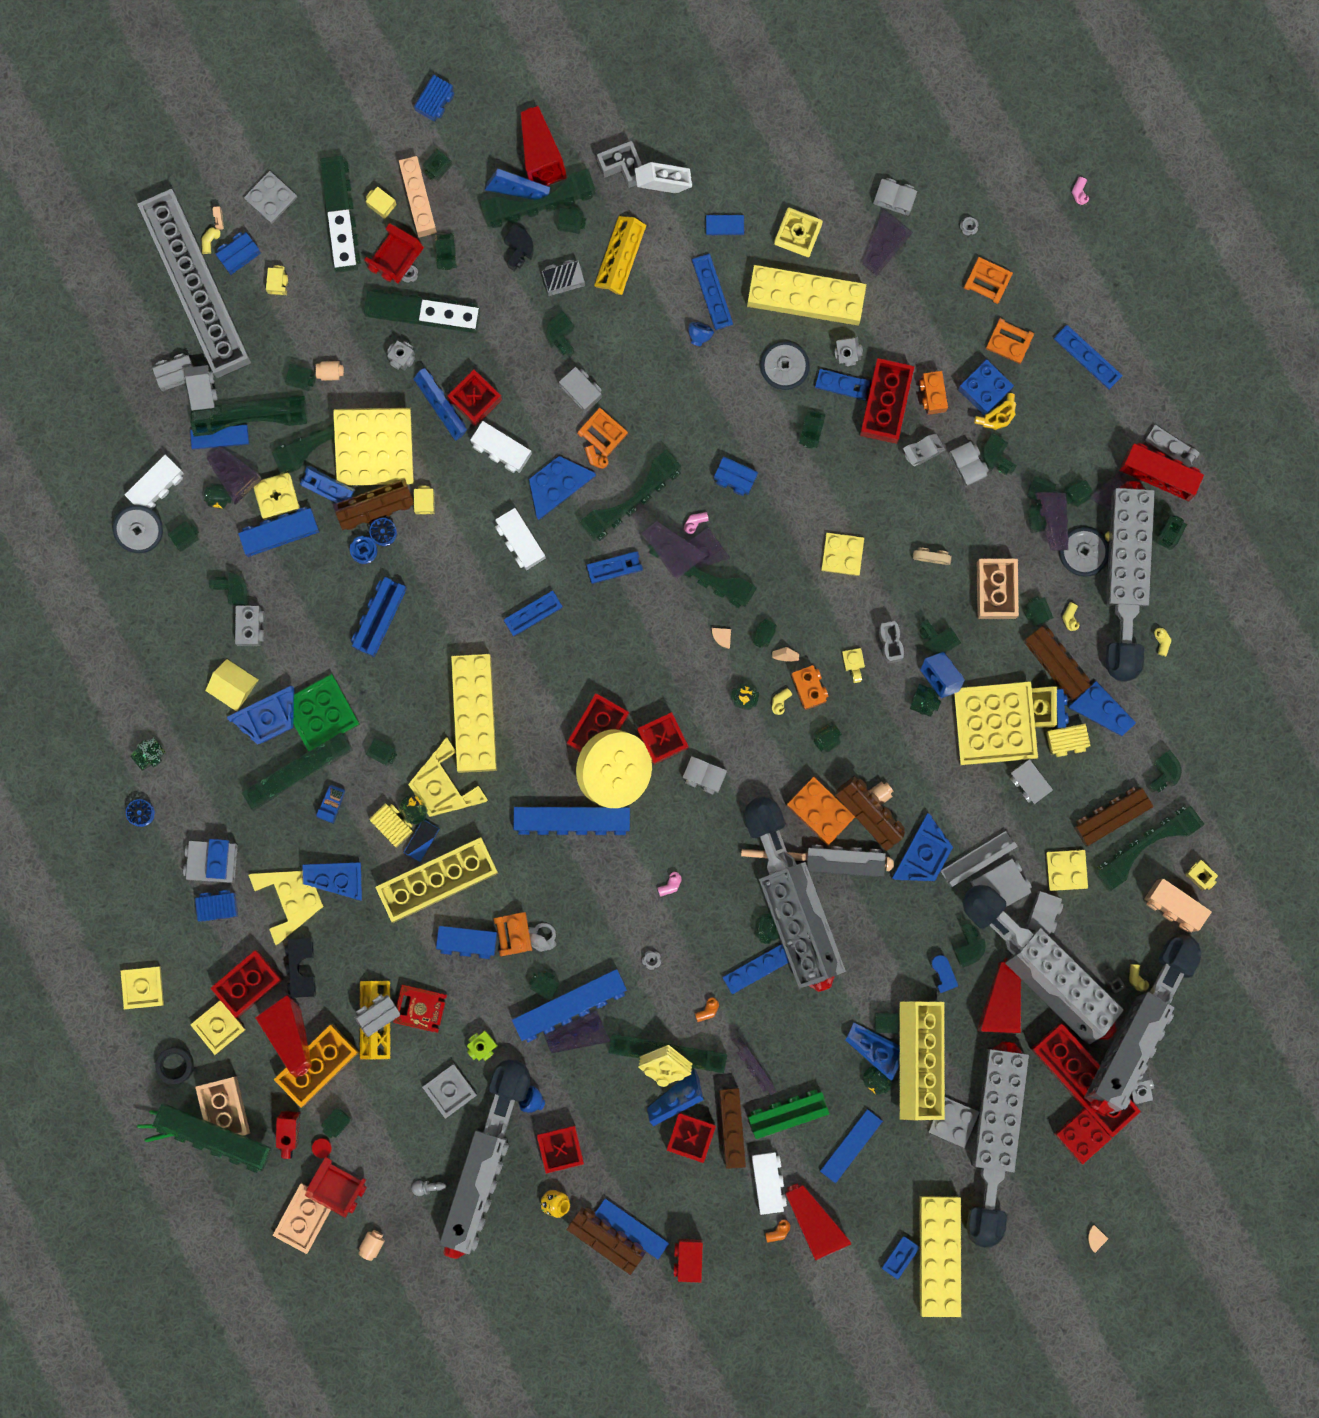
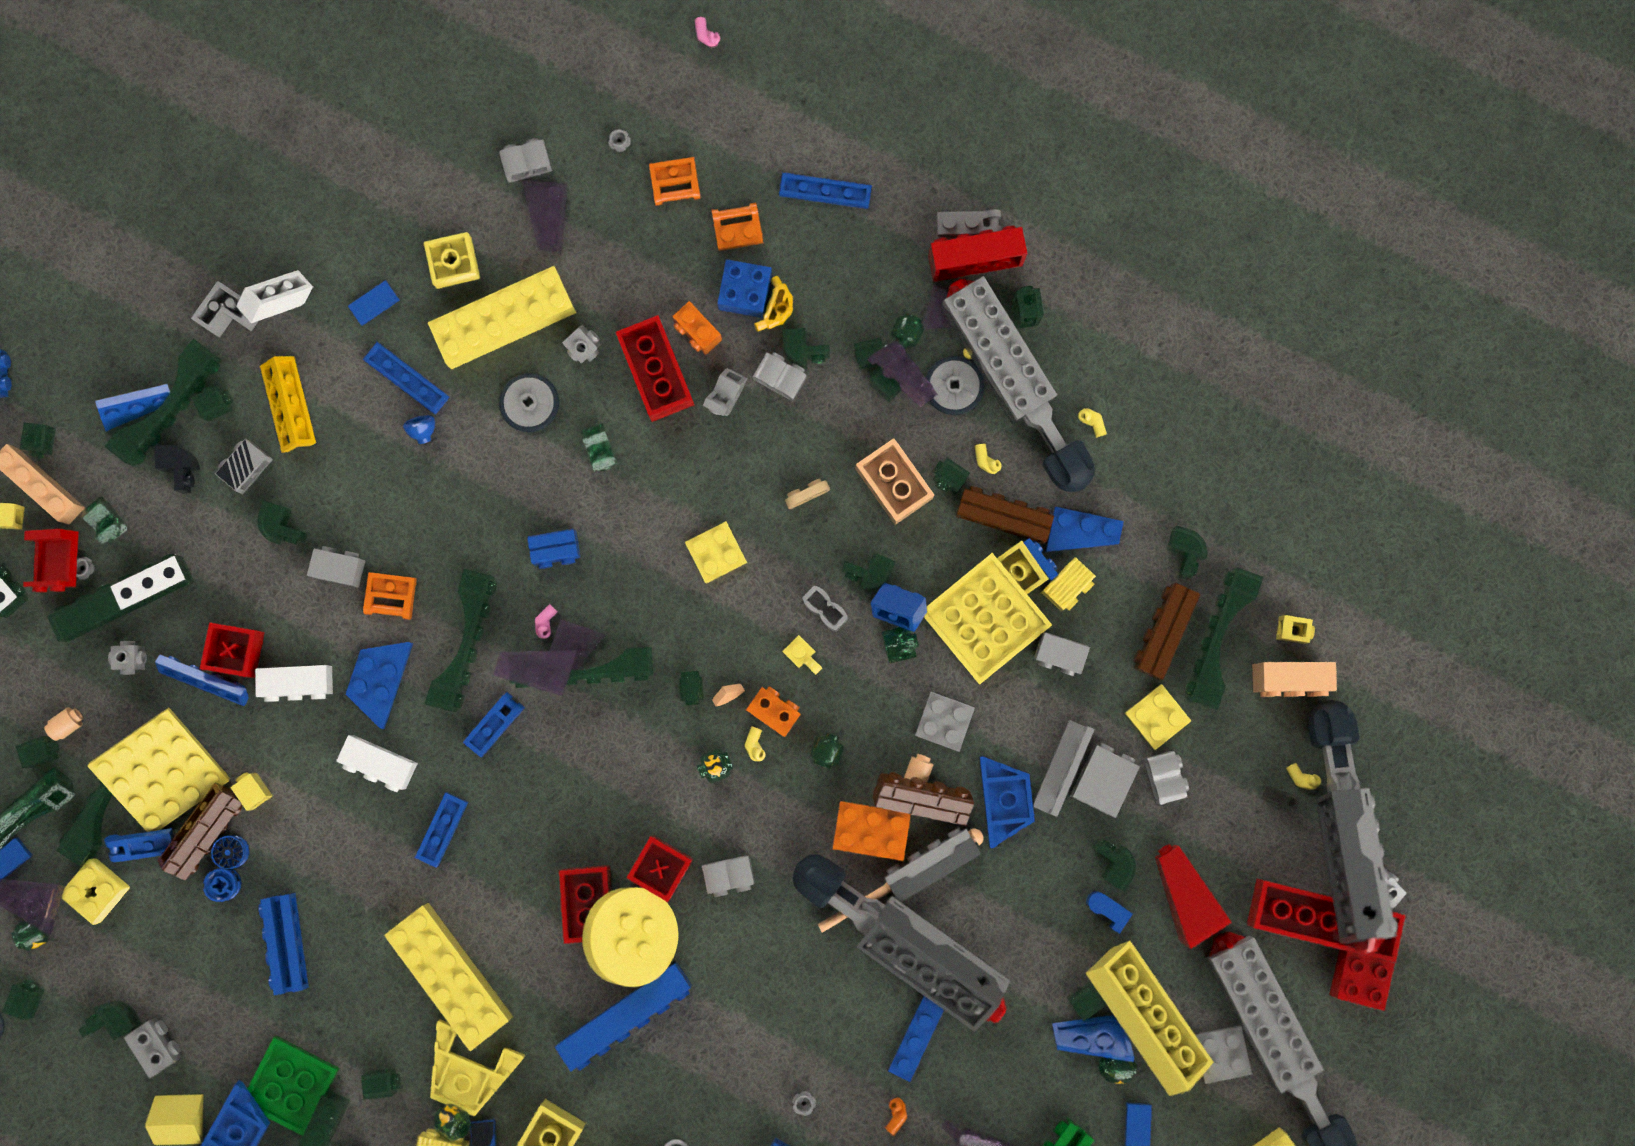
camera: 30 degrees left, 0 degrees up
(278, 532) = (120, 927): blue brick -> none
(541, 154) = (133, 357): red slope -> none
(595, 459) = (399, 627): orange arm -> none
(672, 885) = (773, 1011): bright pink arm -> none
(722, 637) = (651, 720): light nougat tile -> none
(766, 929) = (898, 991): clear green head -> none
(842, 384) = (599, 382): blue plate -> none
(919, 774) = (944, 721): none -> light grey plate
(1047, 969) = (1210, 835): piece -> none
(1096, 1238) = (1446, 1073): light nougat tile -> none

